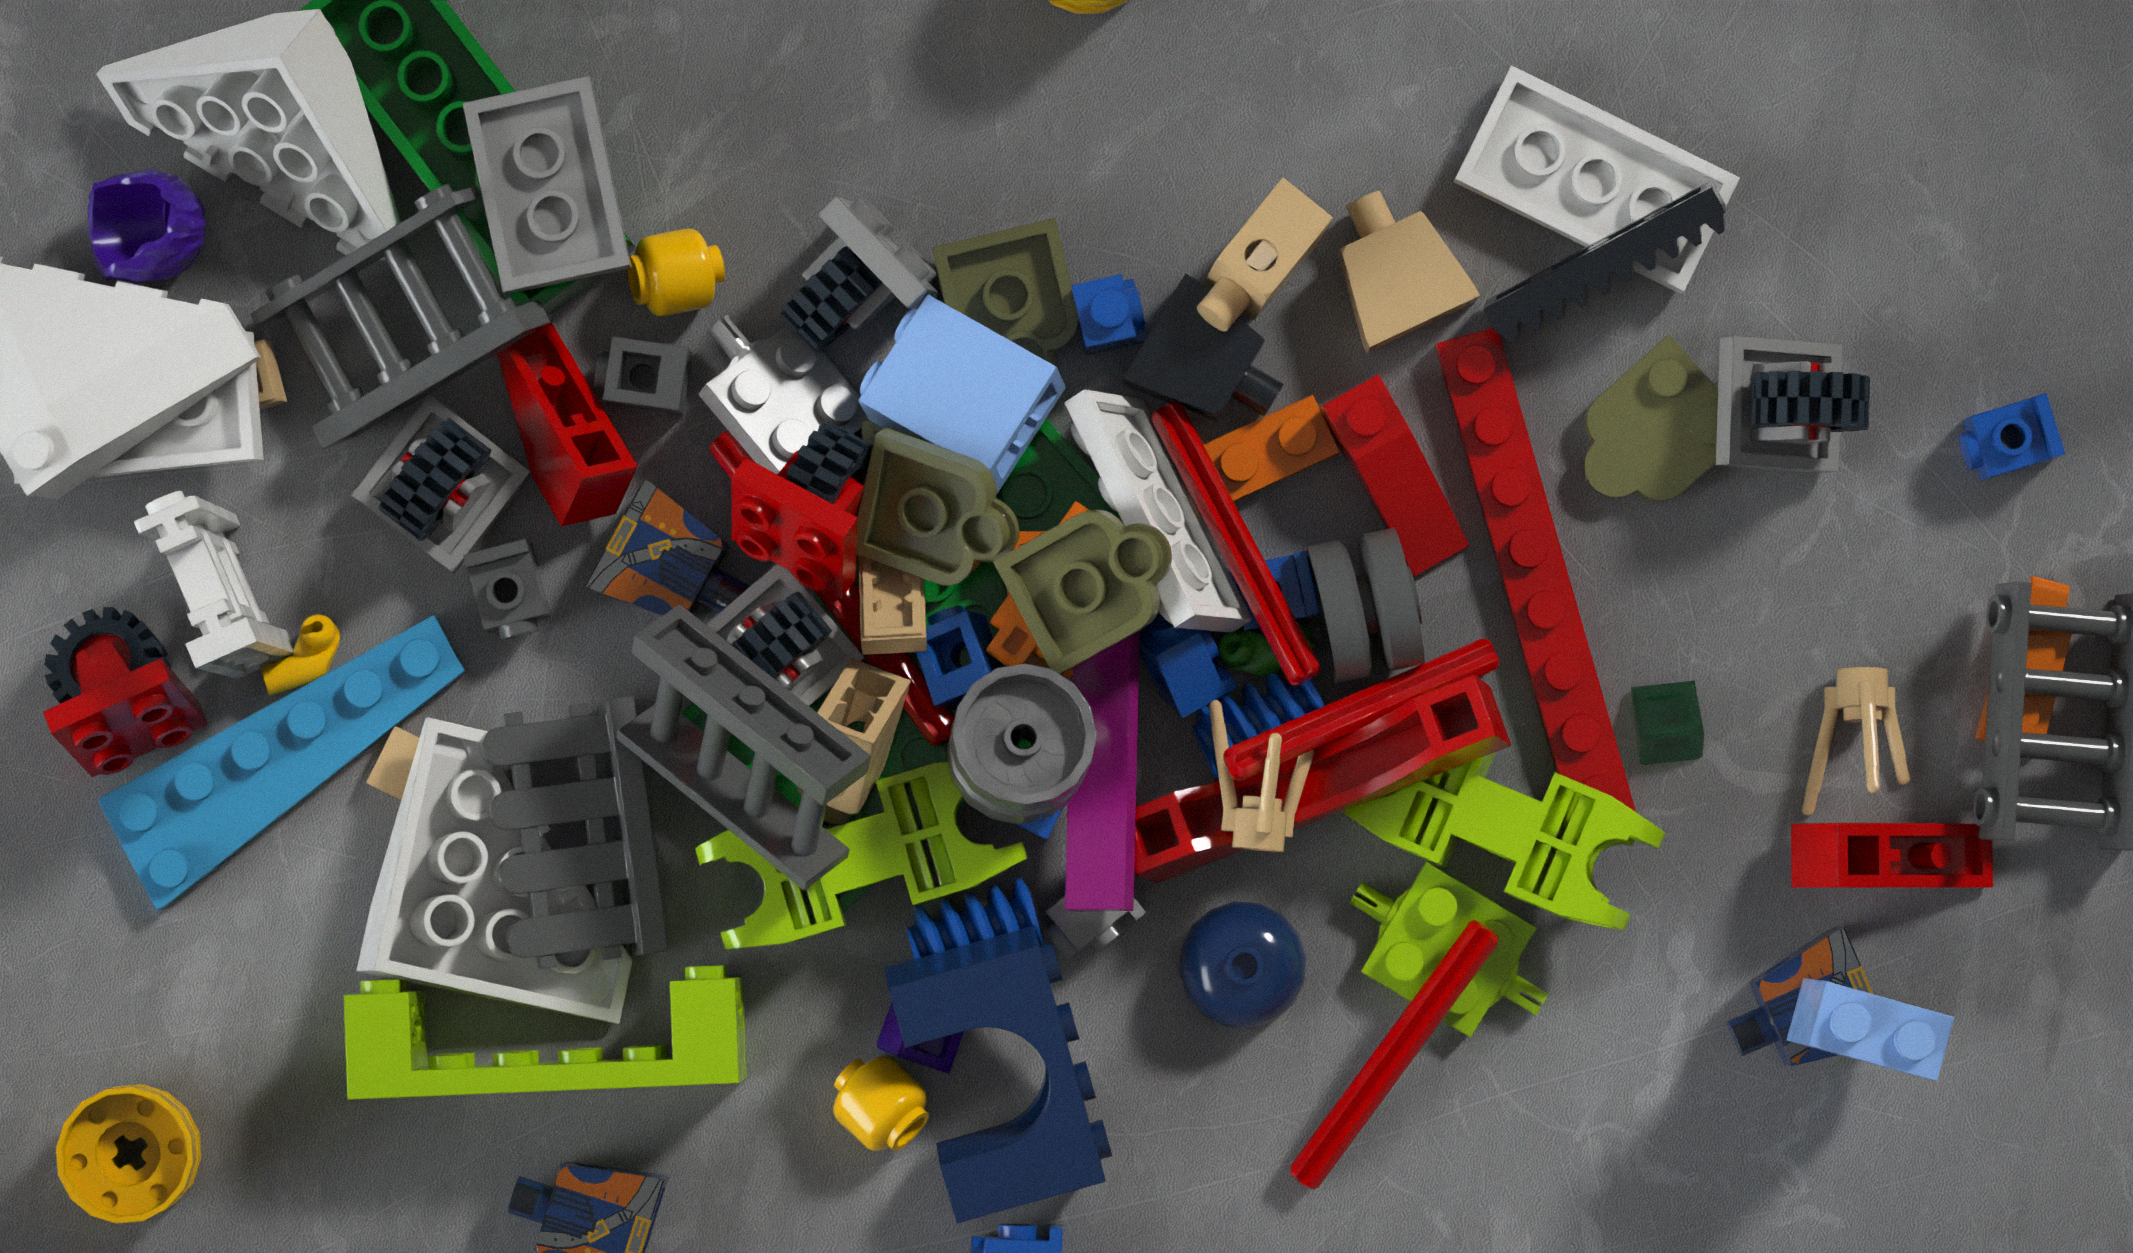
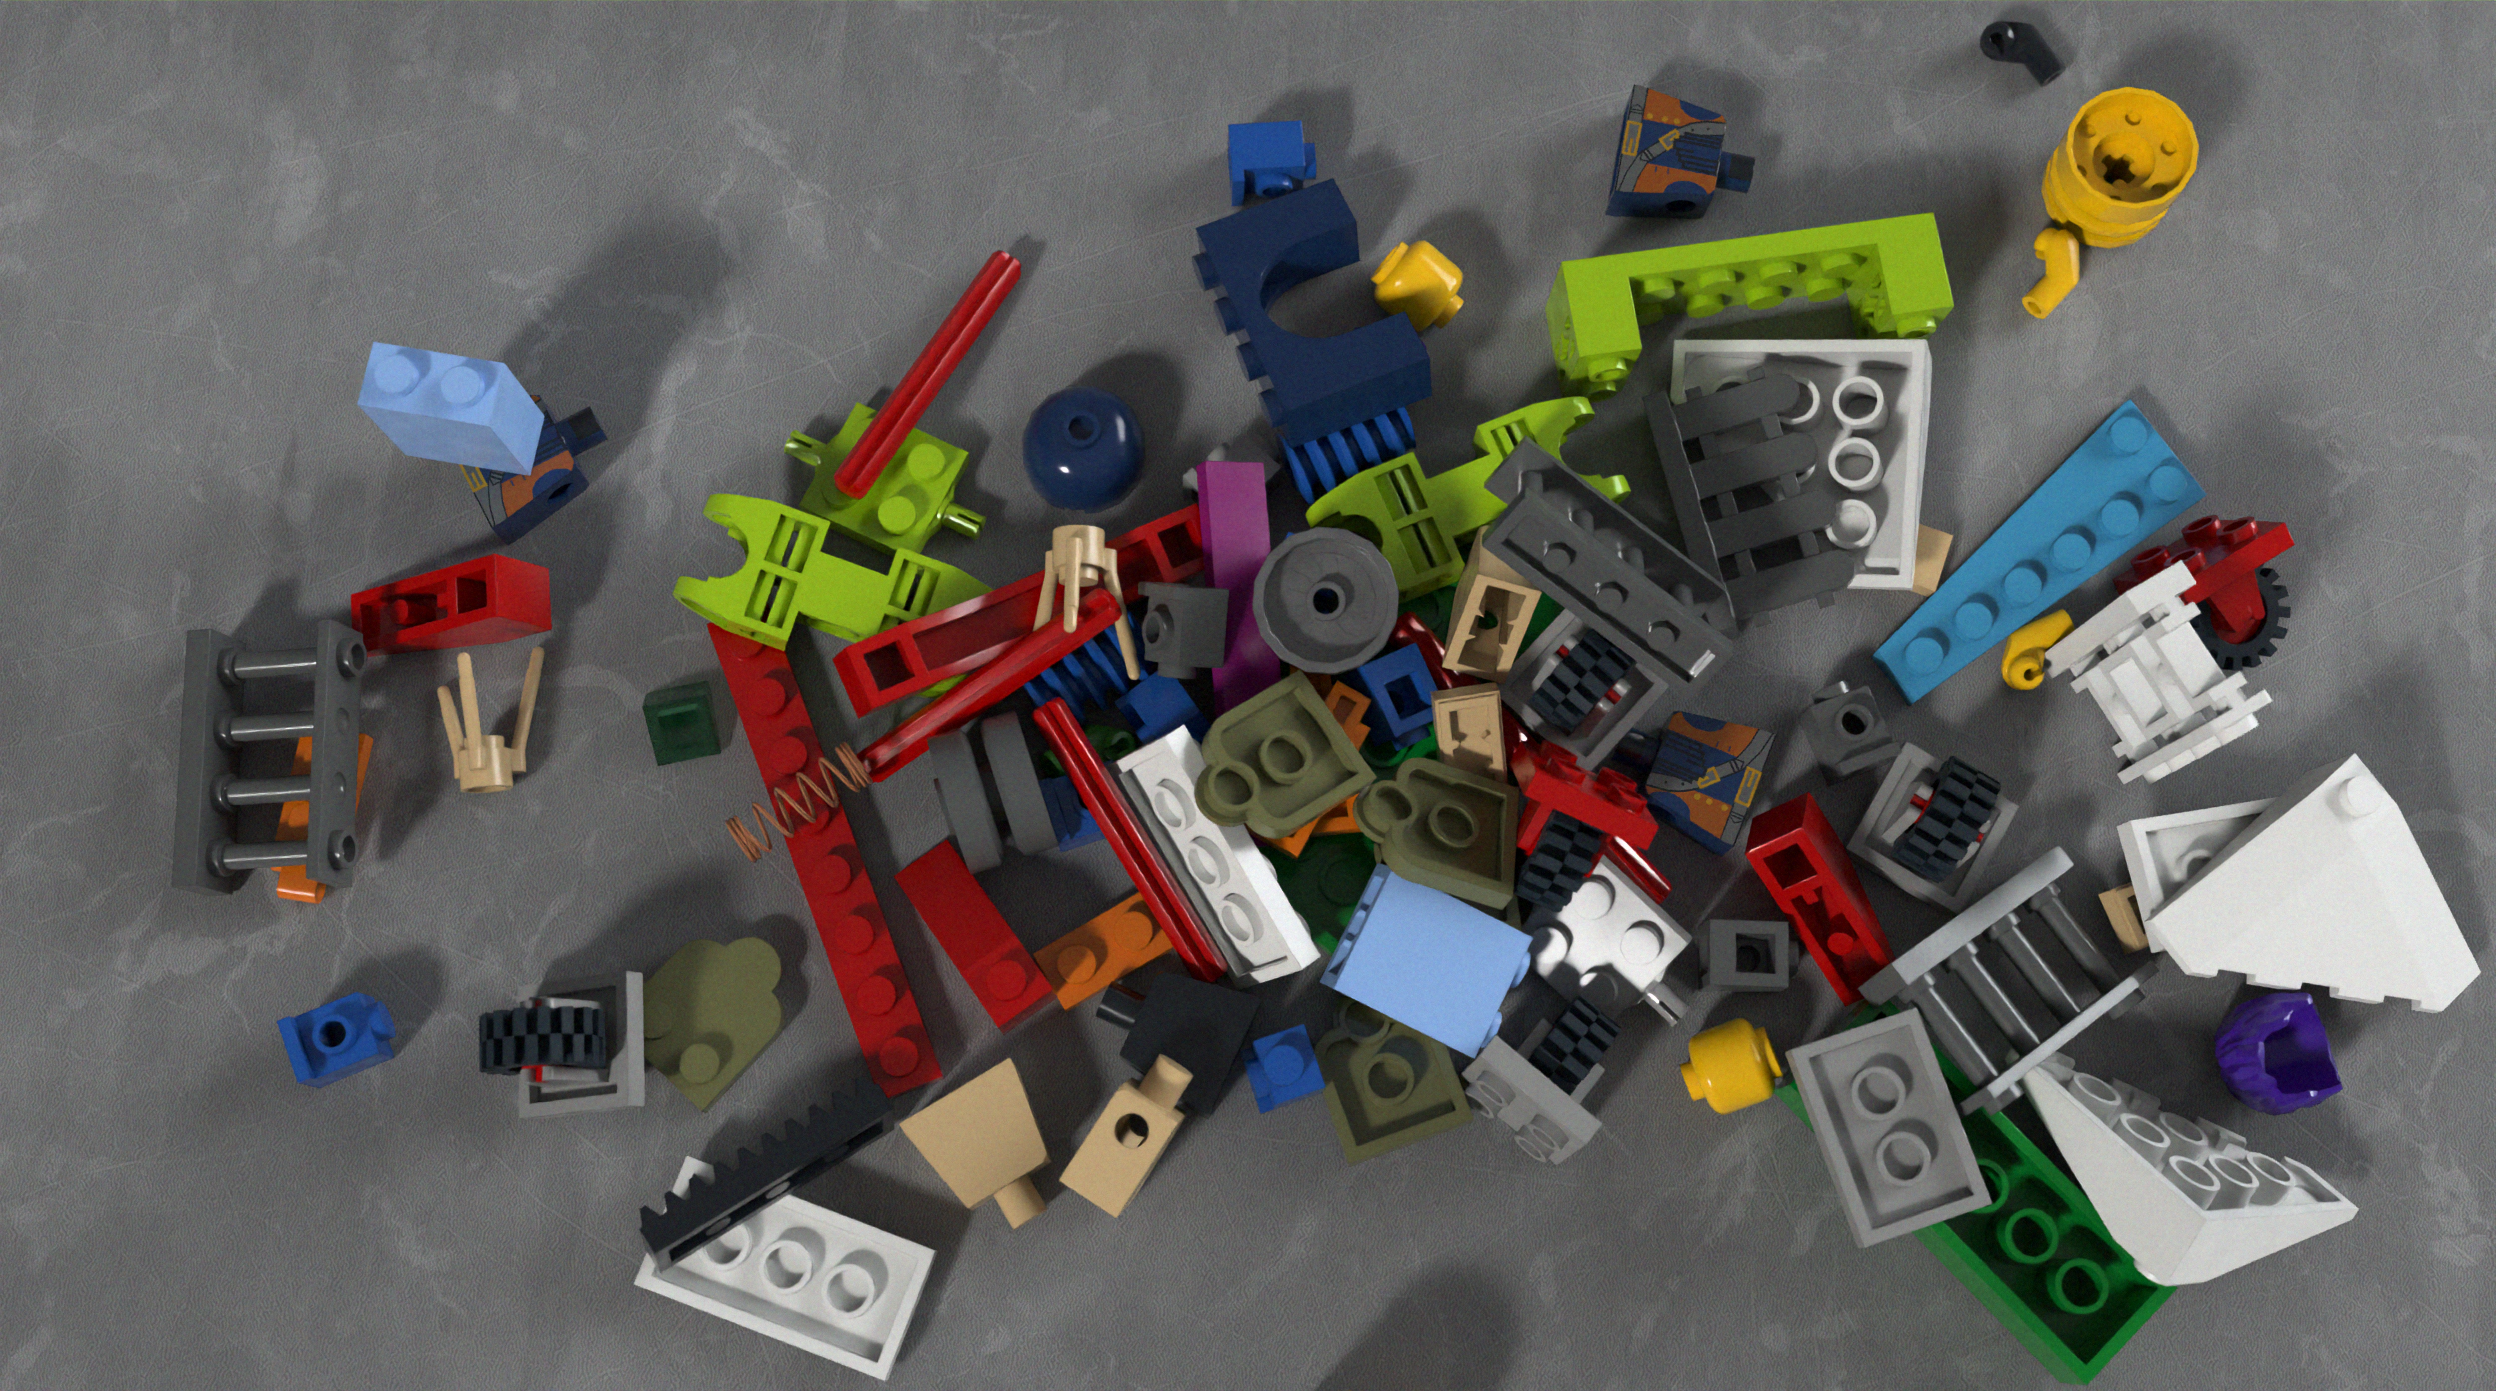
camera: 165 degrees right, 10 degrees down
(200, 1061) = (2061, 275): none -> yellow arm
(1161, 744) = (1184, 627): none -> dark grey brick
(1611, 587) = (748, 842): none -> nougat piece

